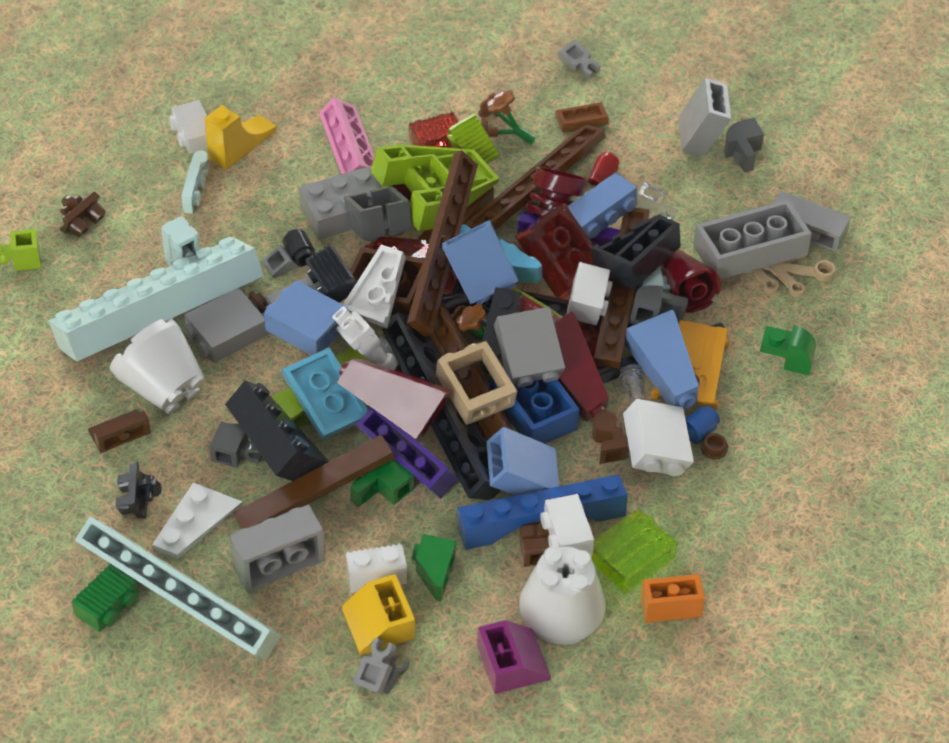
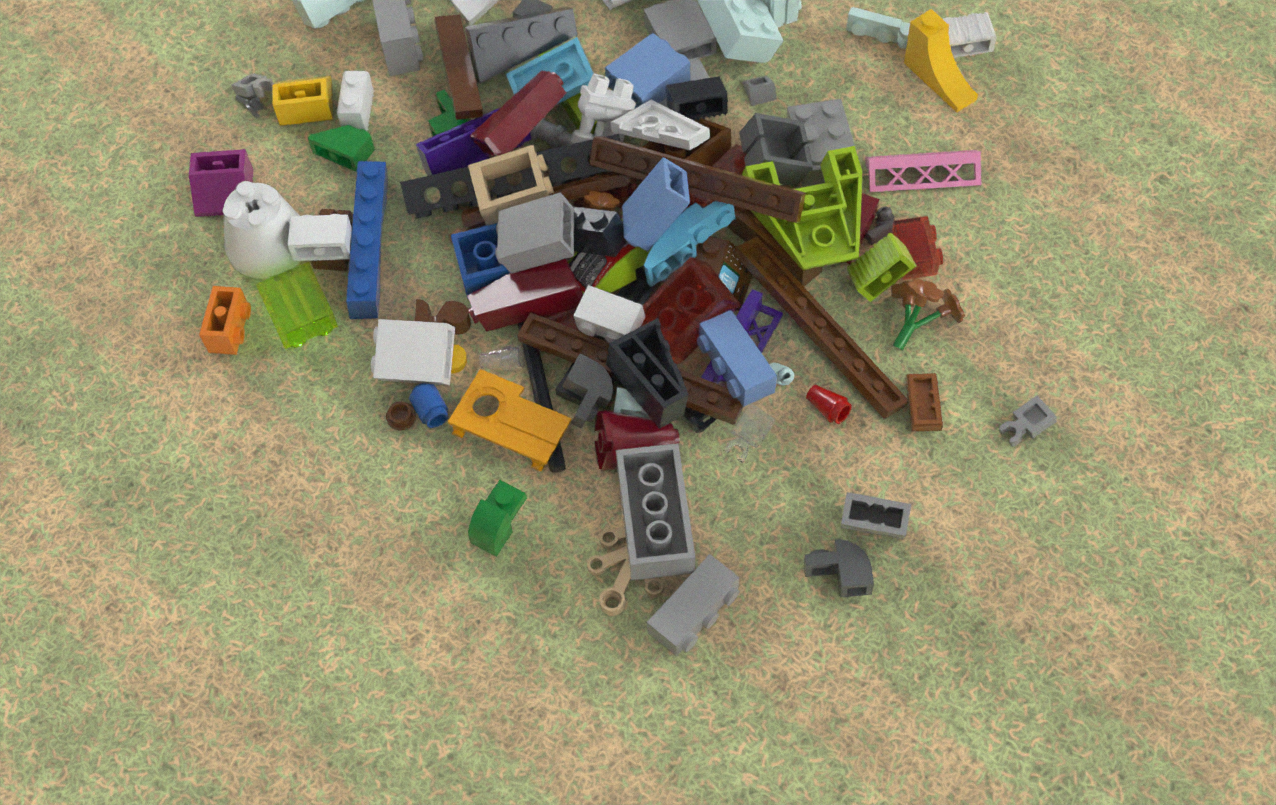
camera: 110 degrees right, 10 degrees up
(258, 301) = (706, 55): reddish brown plate -> none
(298, 246) = (770, 101): black brick -> none
(521, 463) = (415, 226): medium blue brick -> none
(557, 189) = (779, 325): dark red wheel -> none
(664, 358) = (506, 379): medium blue slope -> none

